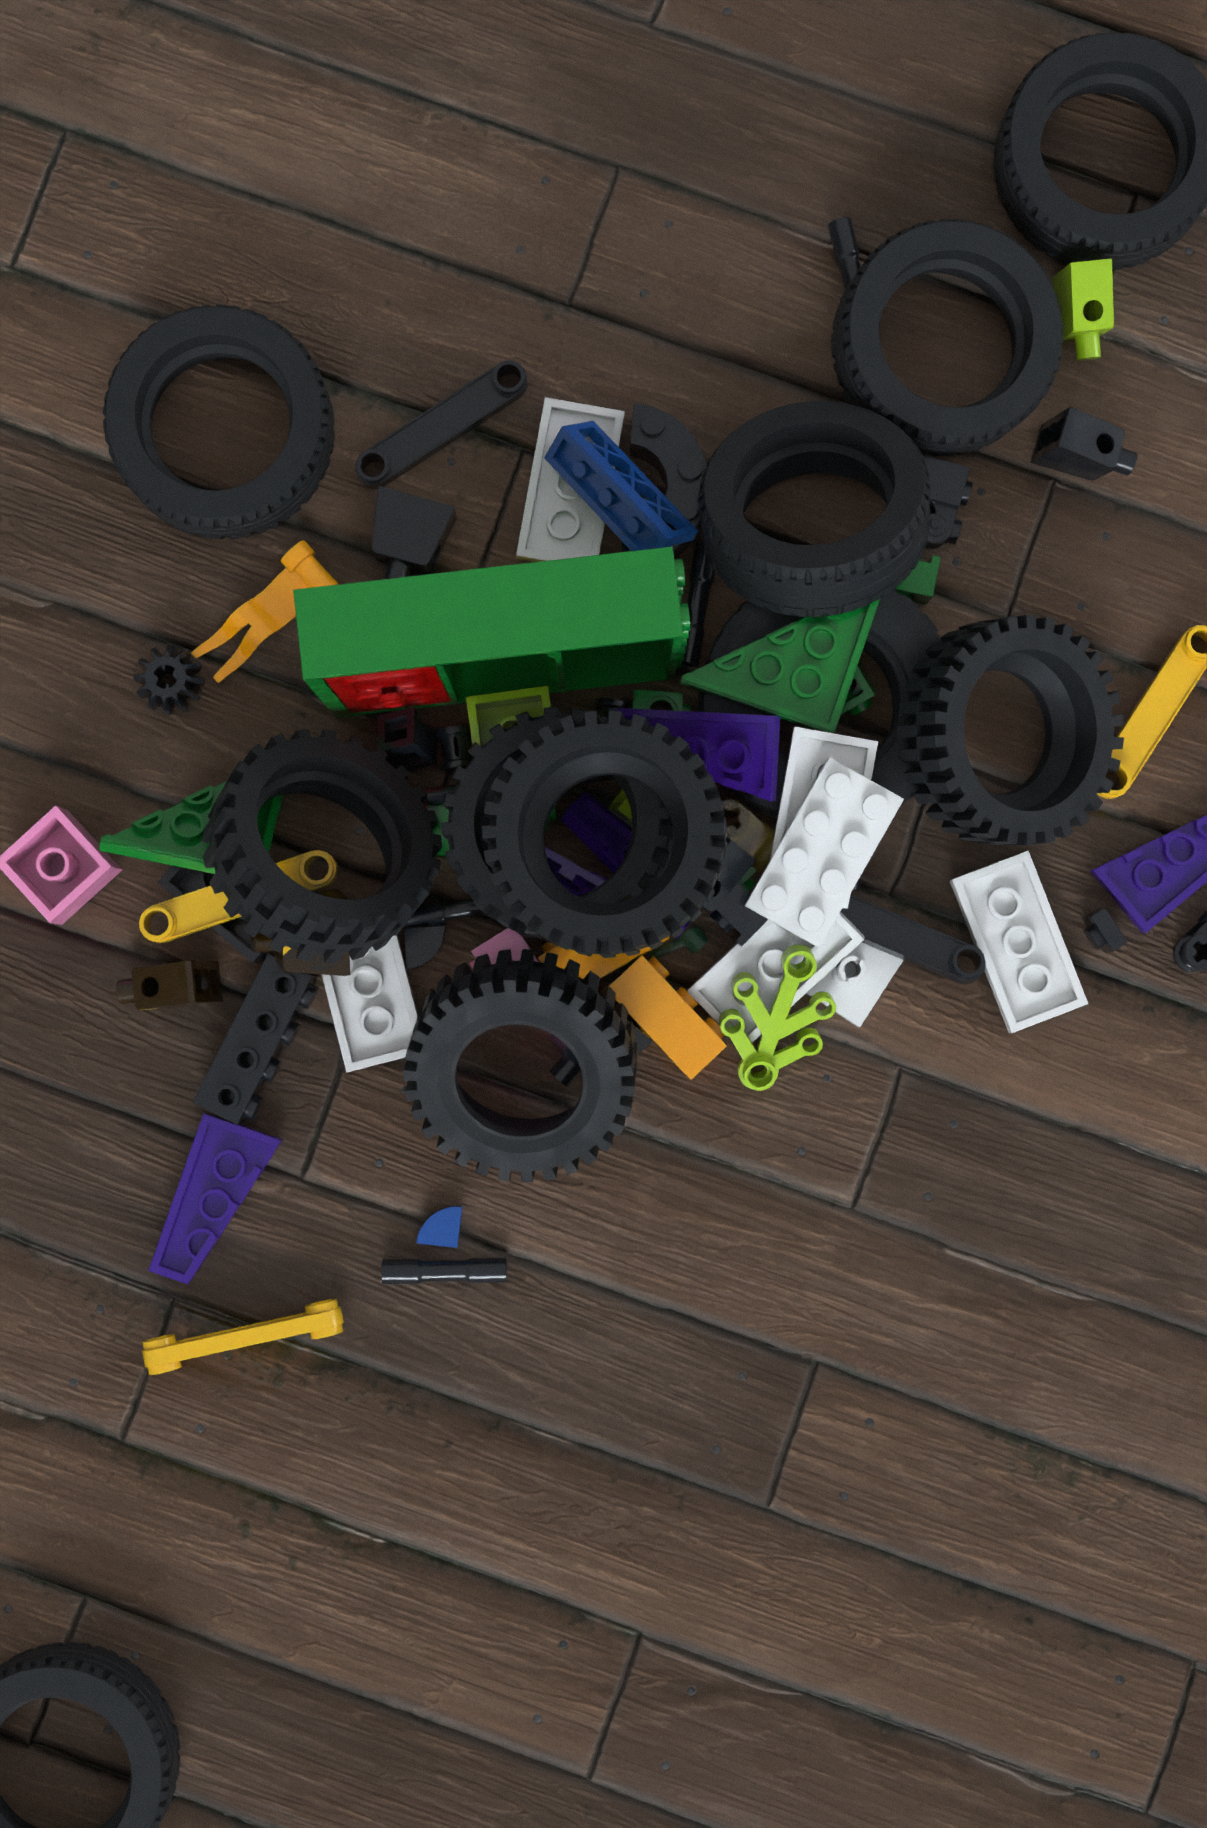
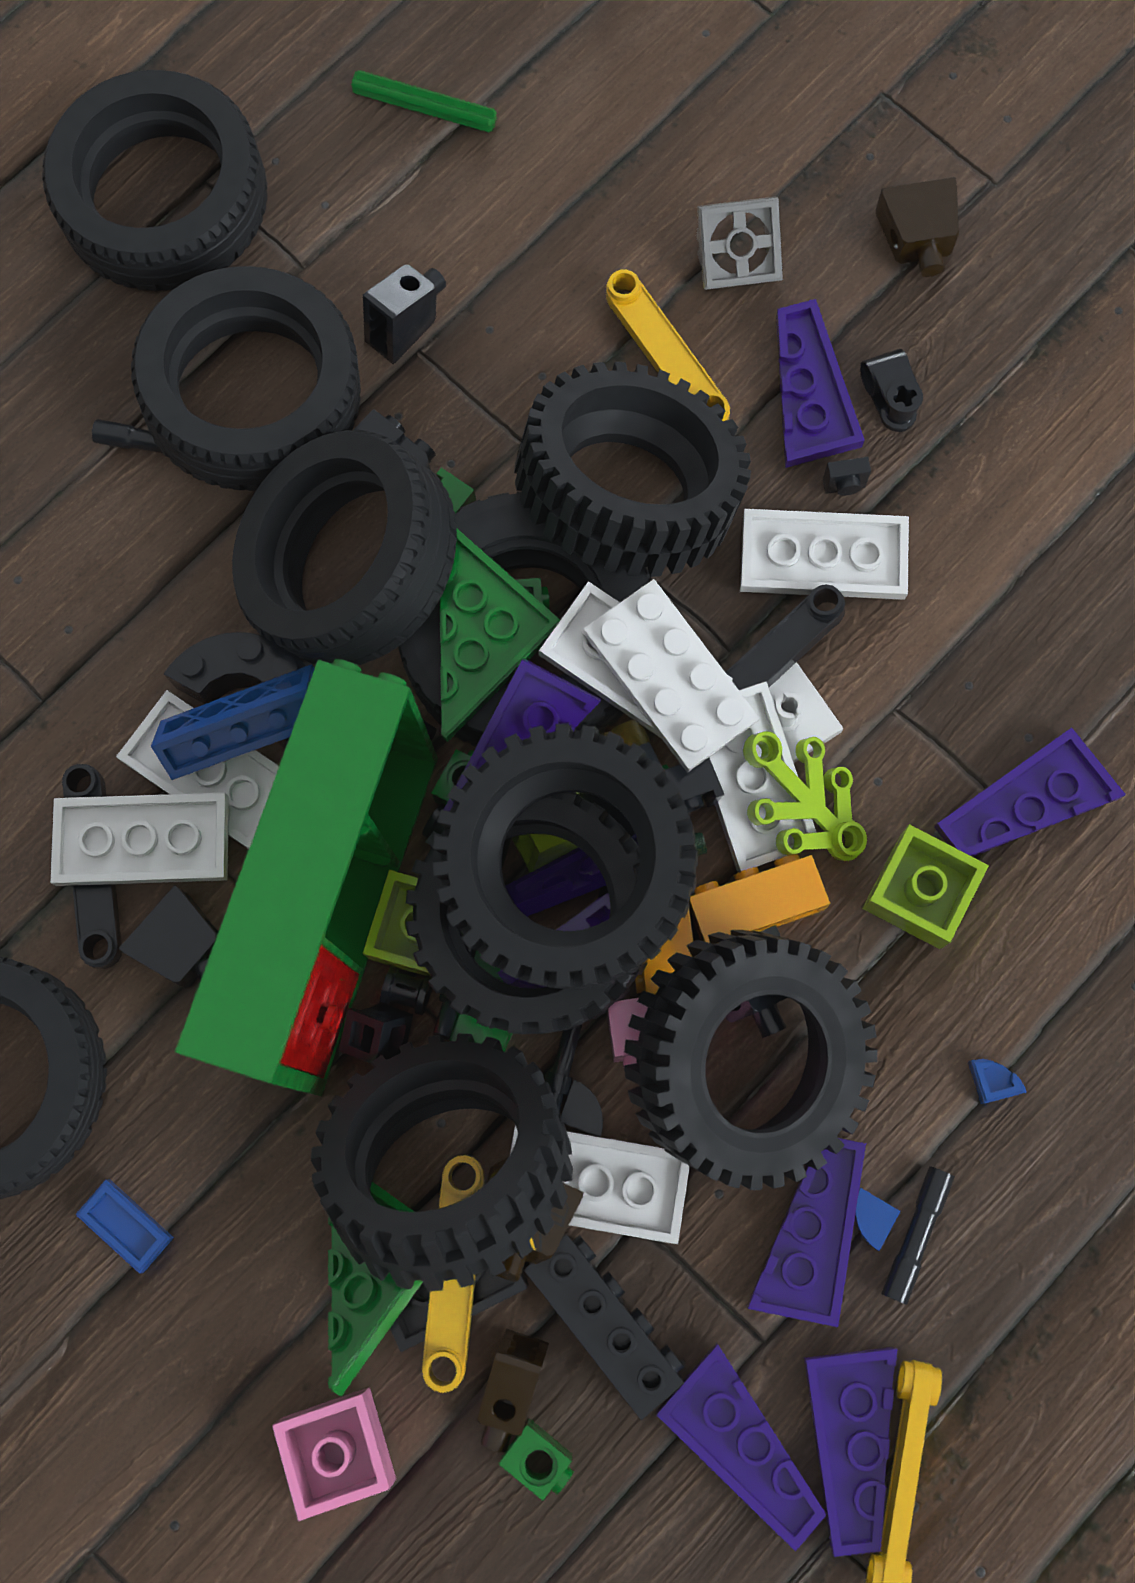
camera: 60 degrees left, 10 degrees down
(142, 1024) = (534, 1439): none -> green brick
(155, 671) = (202, 1266): black gear -> none
(158, 605) = (124, 1226): none -> blue tile
(265, 1277) = (851, 1428): none -> dark purple wing
(269, 609) = (183, 1114): light orange flag -> none
(394, 1186) = (812, 1248): none -> dark purple wing
(480, 456) = (140, 839): none -> white plate
(603, 1285) = (994, 1080): none -> blue tile
(743, 1157) = (925, 887): none -> lime brick
(877, 1224) = (1036, 794): none -> dark purple wing
(1088, 290) = (279, 247): lime torso -> none

